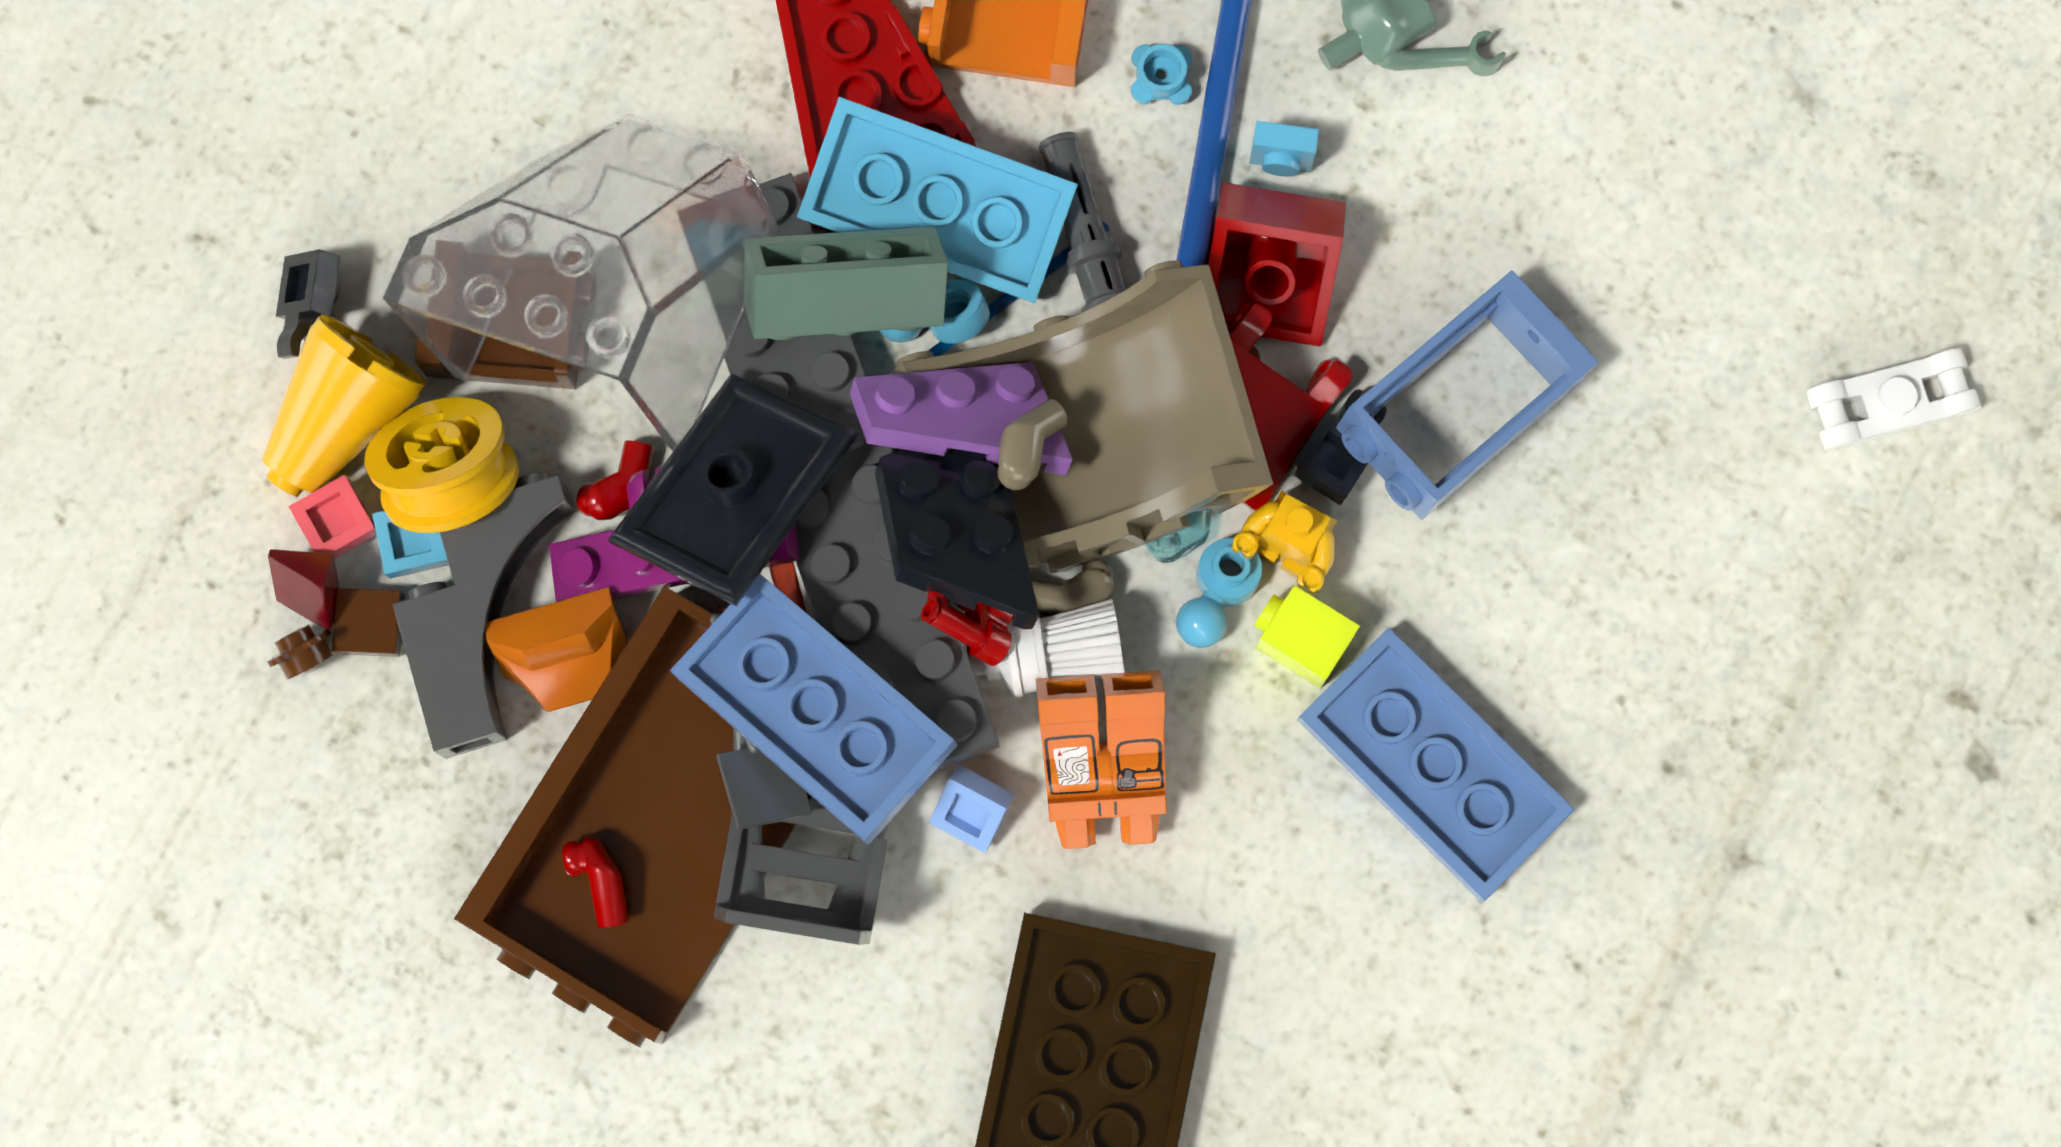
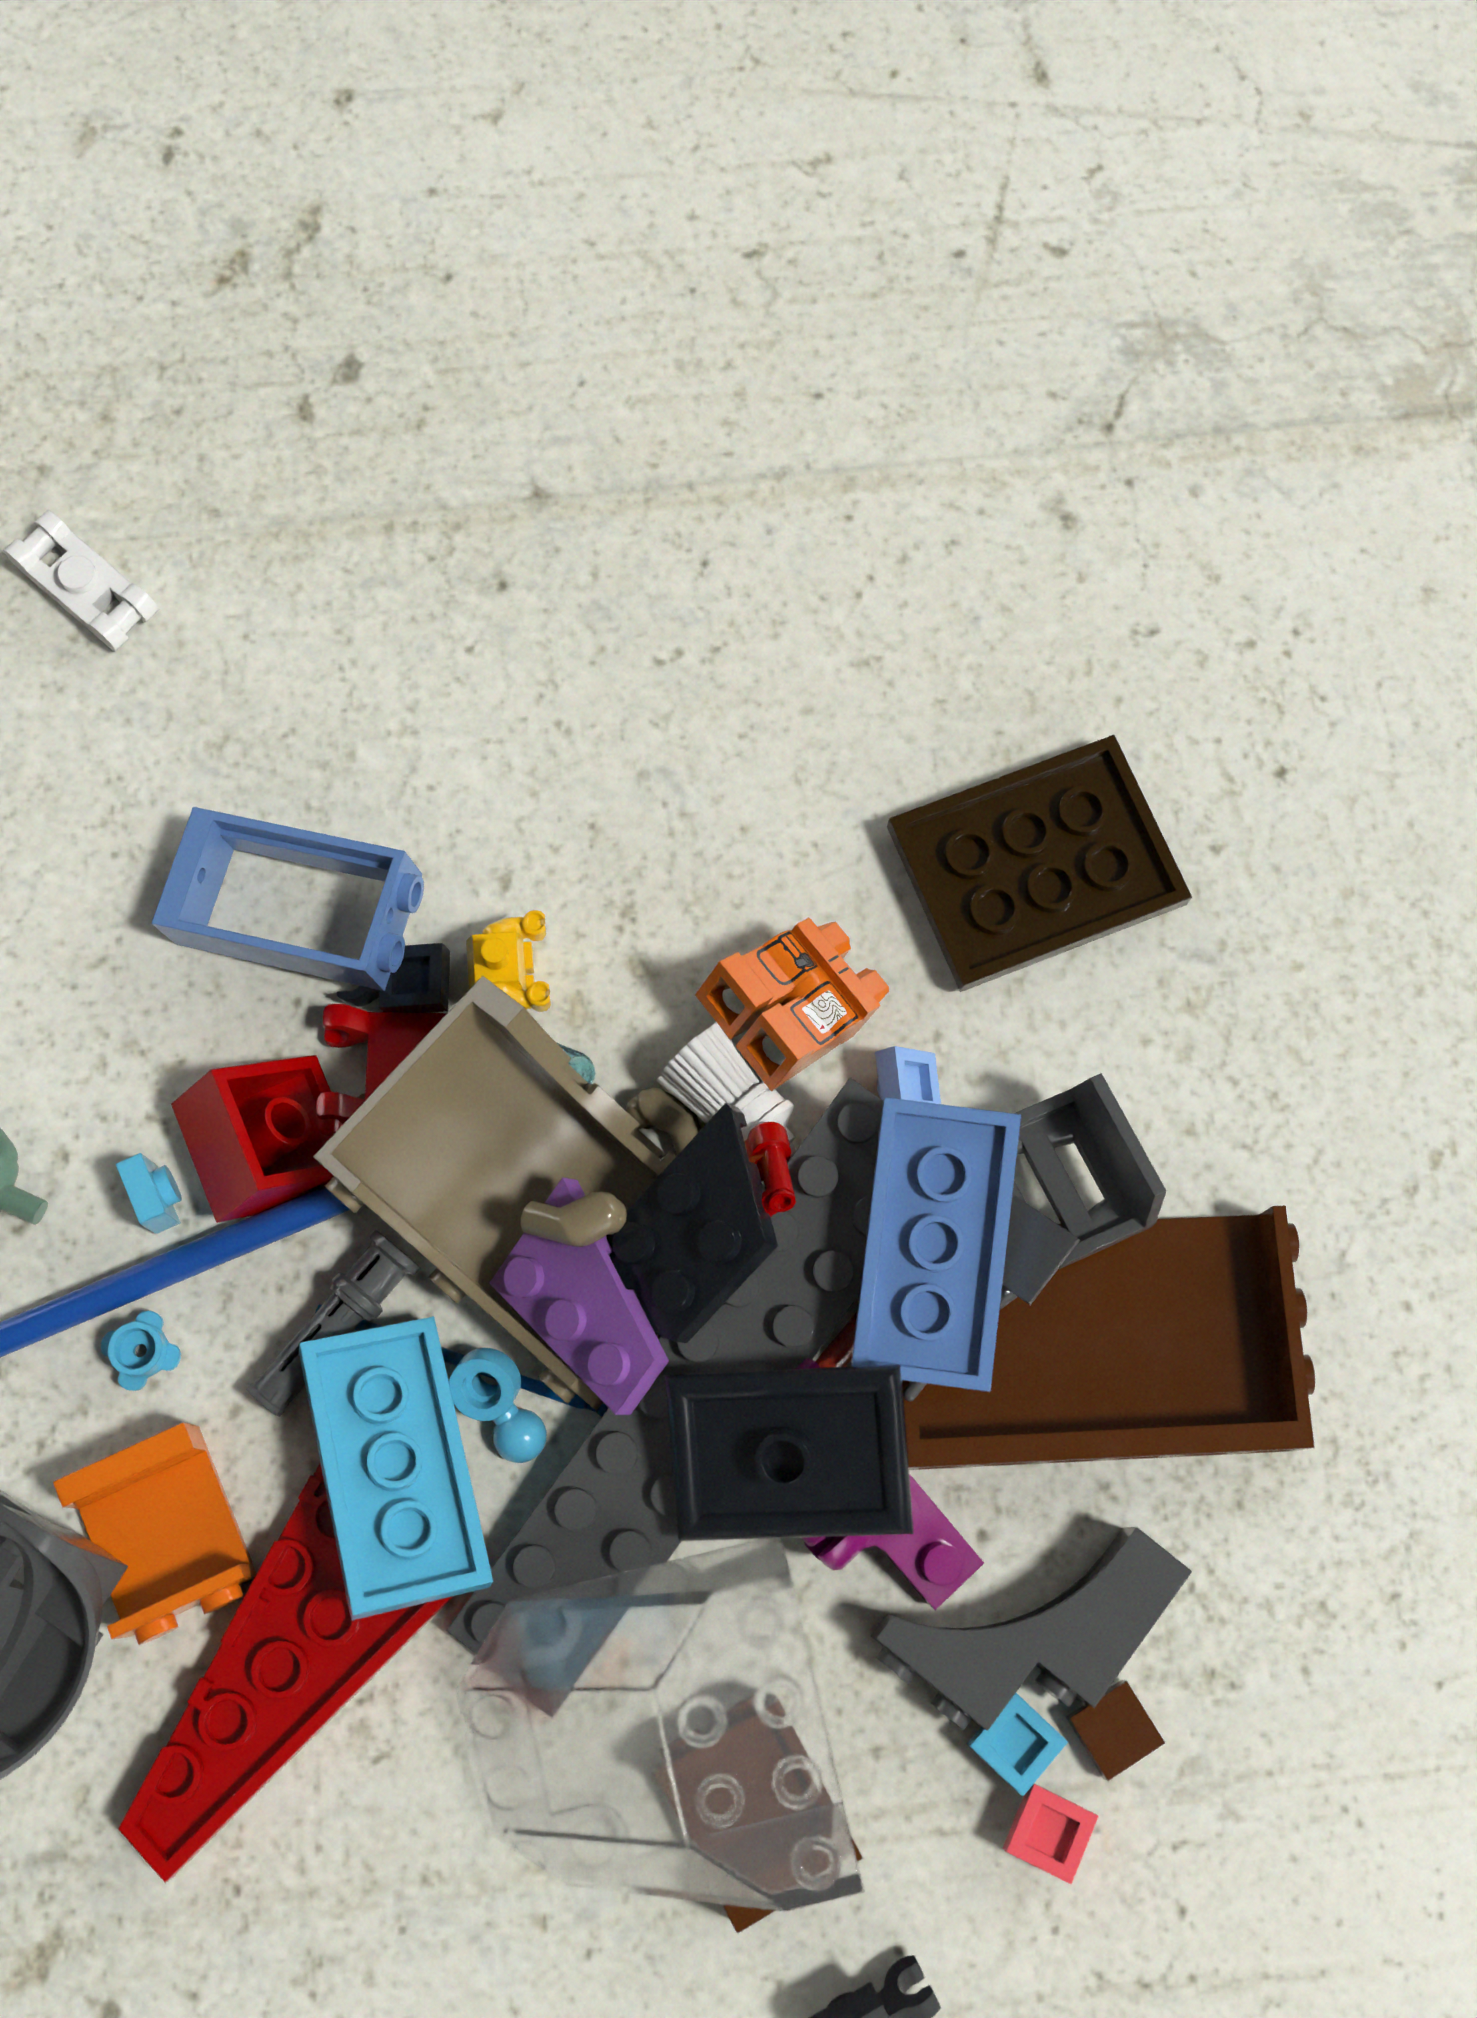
camera: 130 degrees left, 5 degrees down
(301, 651) = (1186, 1770): reddish brown plate -> none
(306, 584) = (1126, 1811): dark red slope -> none
(335, 405) = (948, 1909): yellow cone -> none
(442, 464) = (922, 1774): yellow wheel -> none
(560, 648) = (1019, 1529): orange slope -> none
(604, 879) = (1182, 1349): red arm -> none
(608, 496) = (853, 1584): red arm -> none
(844, 282) = (531, 1486): sand green brick -> none
(1202, 619) = (622, 1000): medium azure plate -> none
(1304, 635) = (581, 907): neon yellow brick -> none
(1435, 765) = (619, 750): medium blue plate -> none

